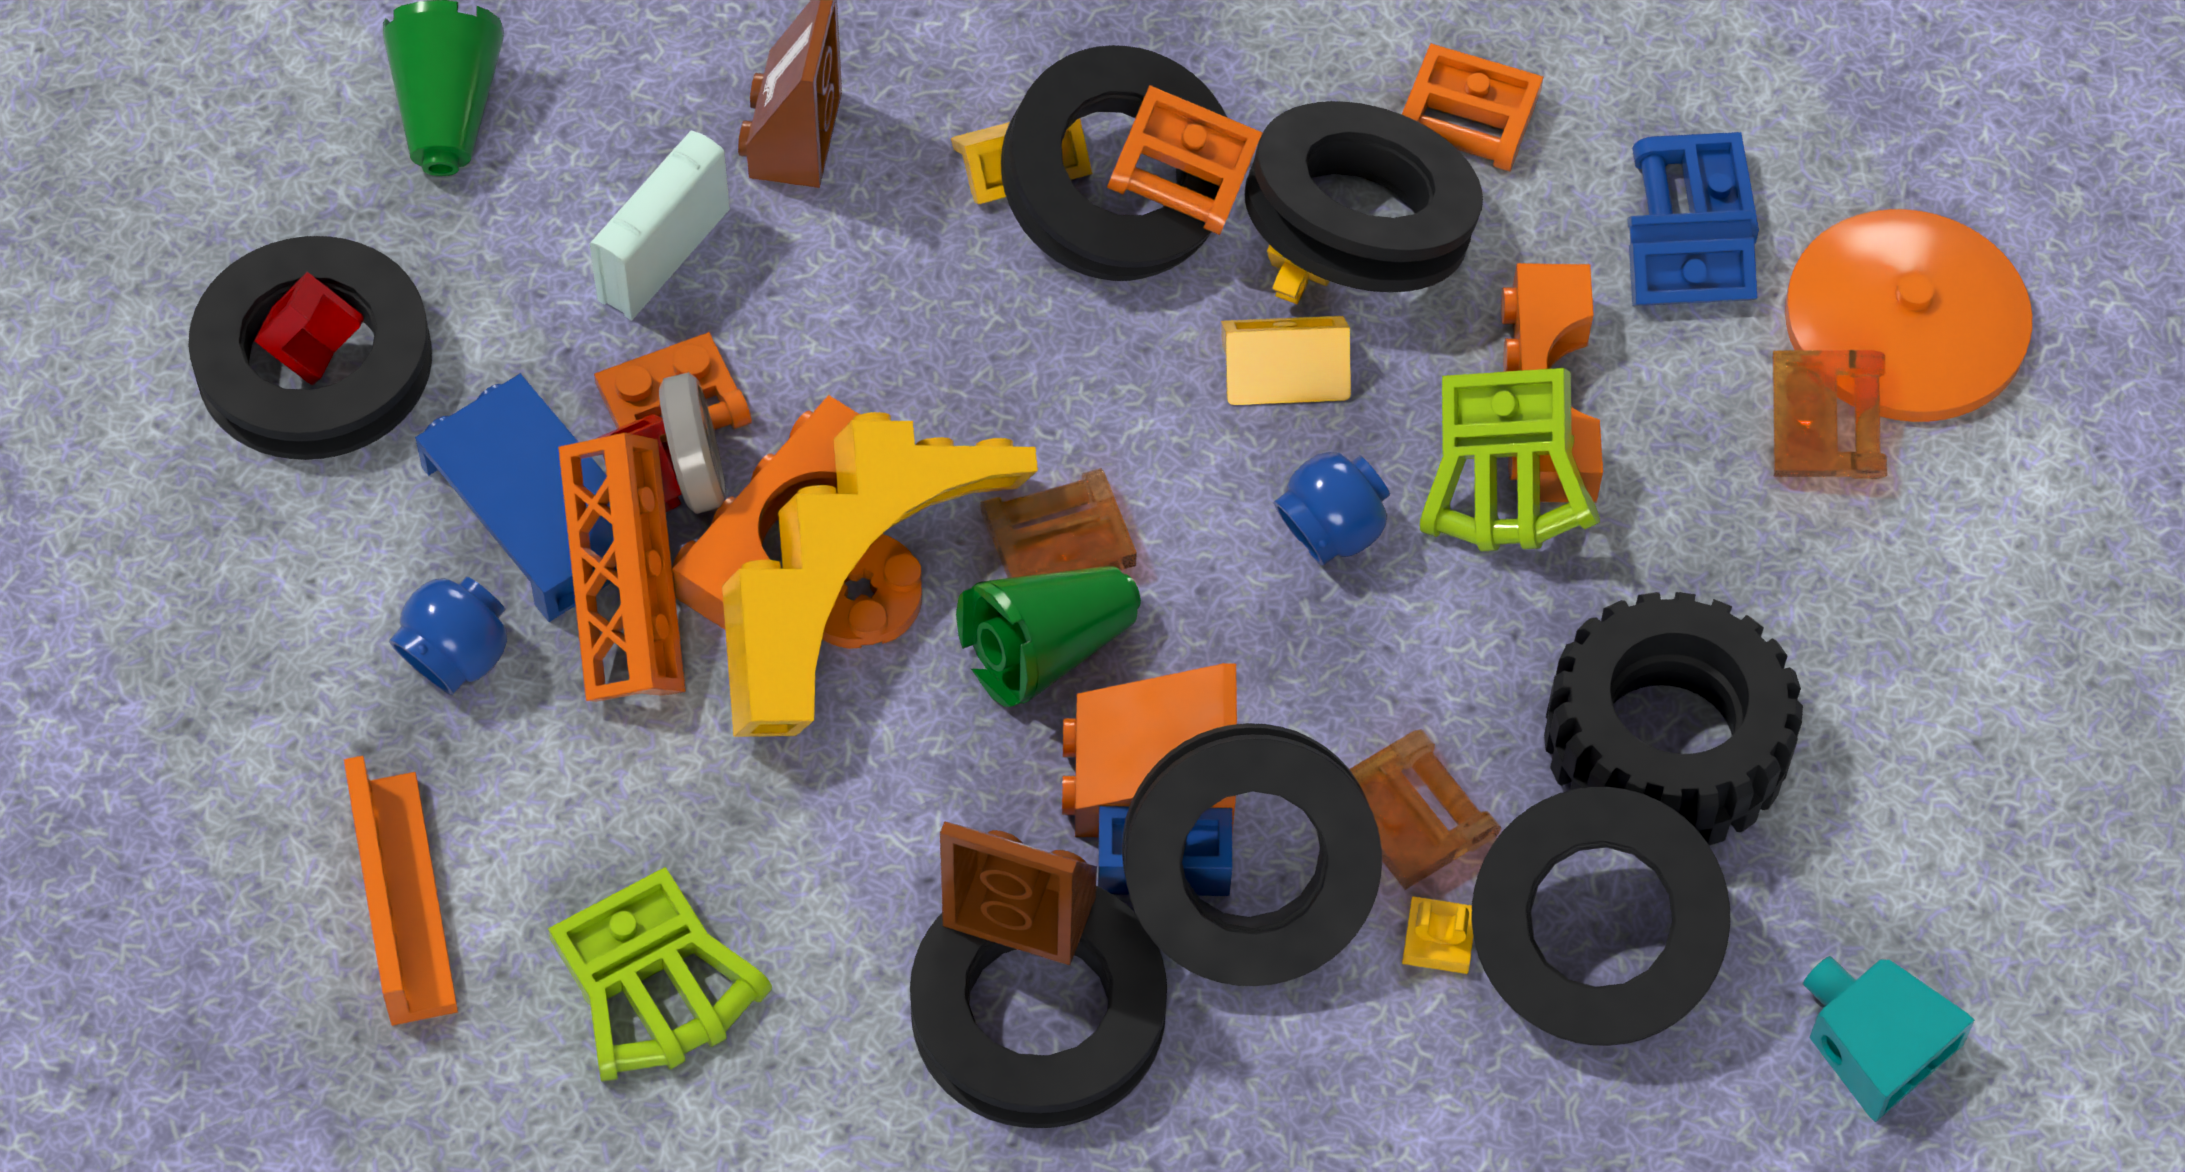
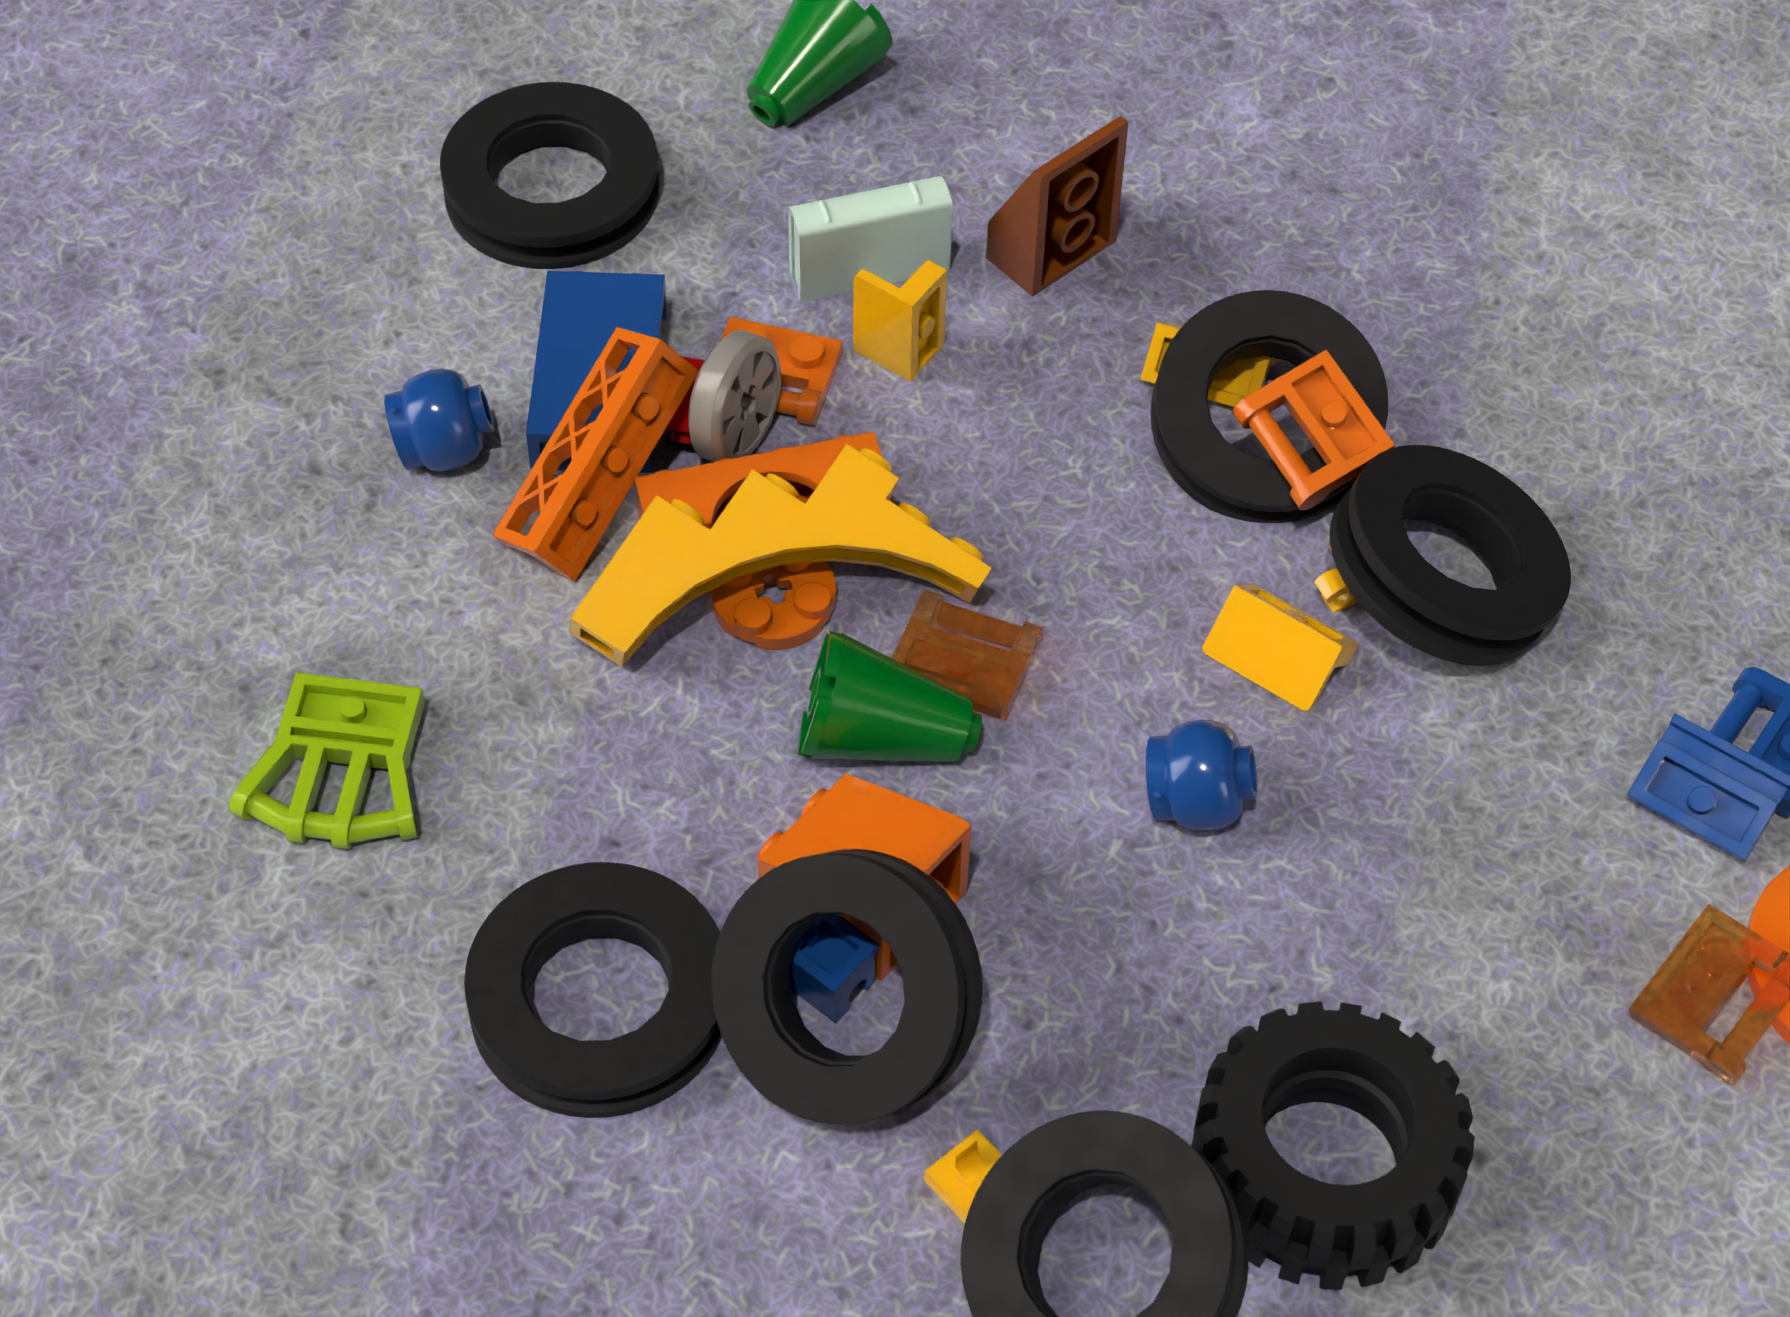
camera: 40 degrees right, 5 degrees down
(308, 328) = (552, 156): red panel -> none
(401, 894) = (205, 617): orange fence -> none
(754, 290) = (902, 324): none -> yellow panel
(1014, 891) = (630, 870): dark orange slope -> none
(1409, 831) = (1025, 1054): clear orange plate -> none
(1477, 92) = (1637, 543): orange plate -> none
(1507, 417) = (1407, 798): lime plate -> none
(1550, 319) = (1532, 755): orange arch -> none

